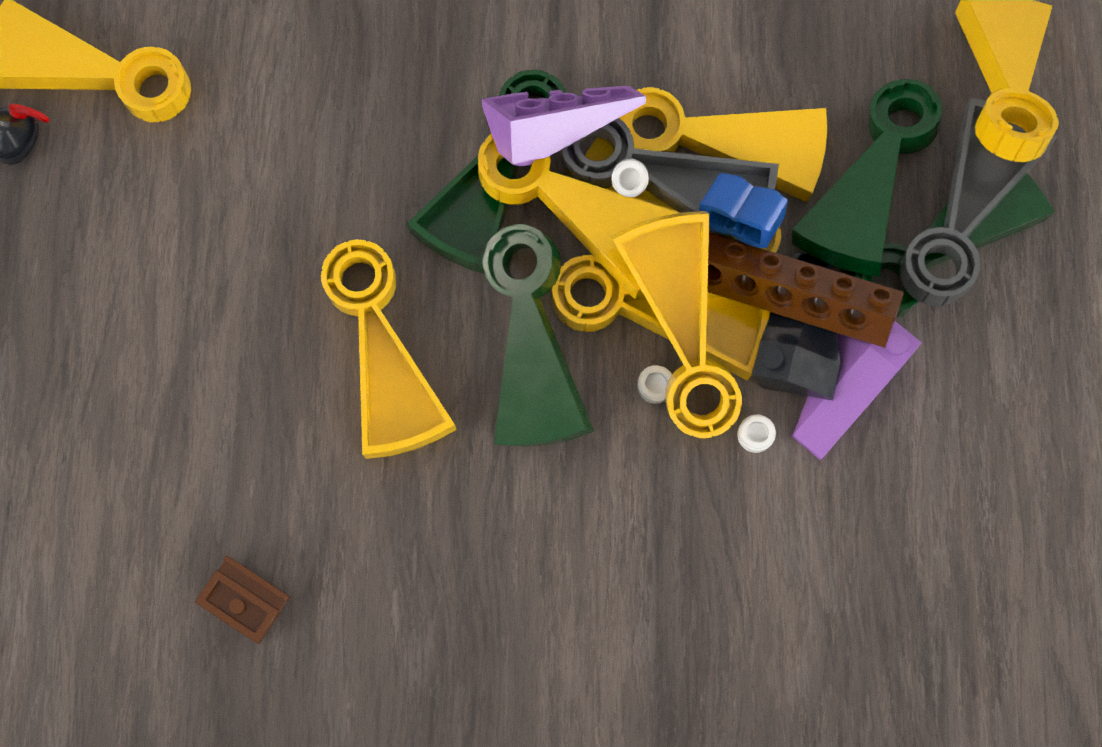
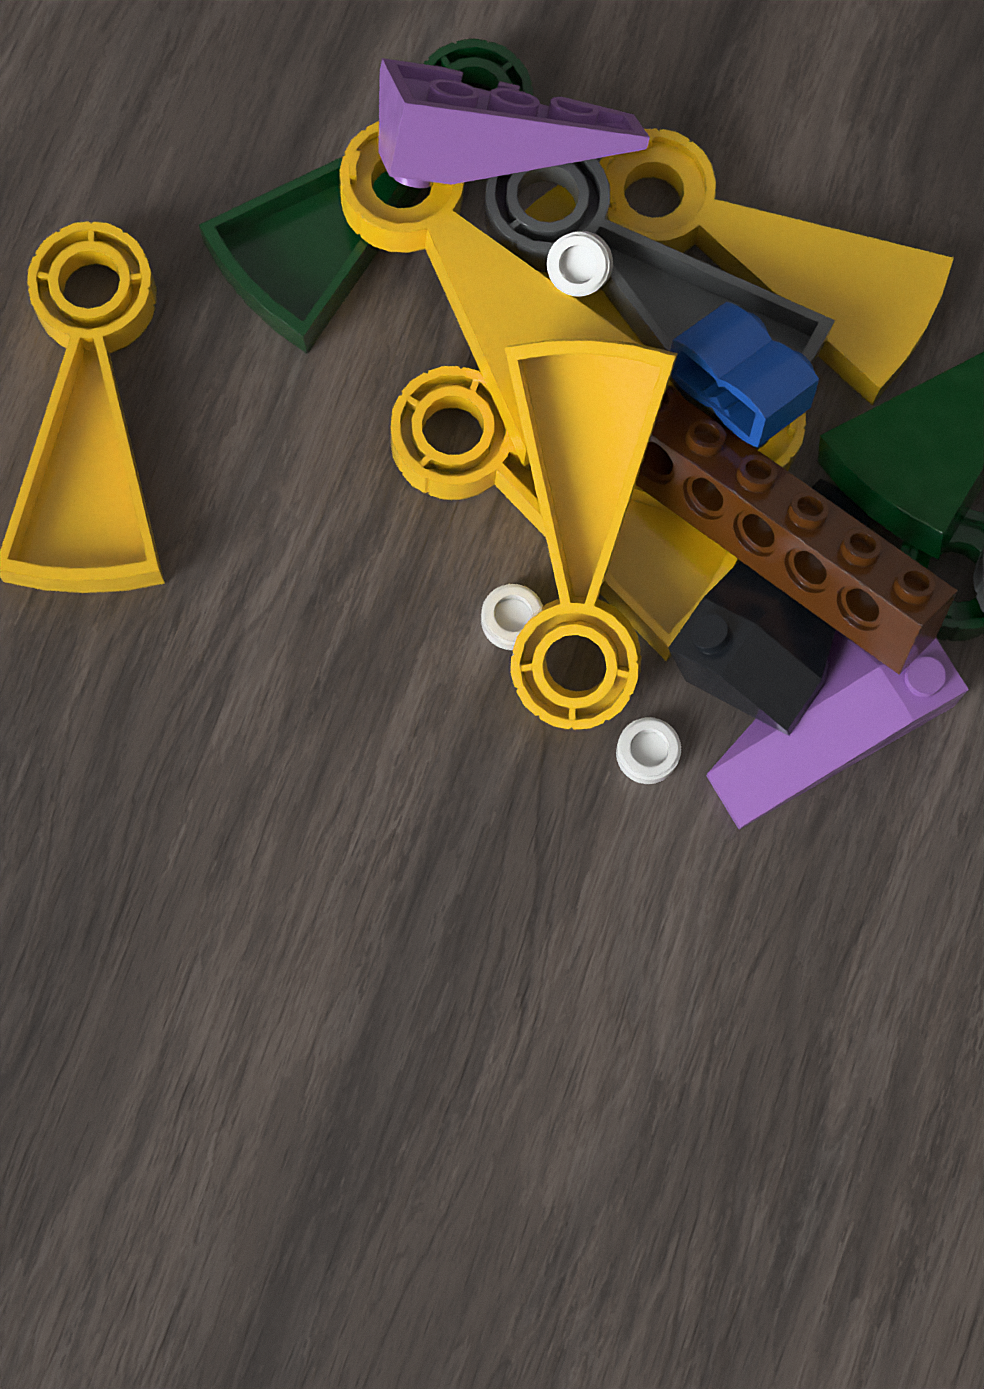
camera: 15 degrees right, 0 degrees up
(537, 389) = (313, 557): dark green piece -> none

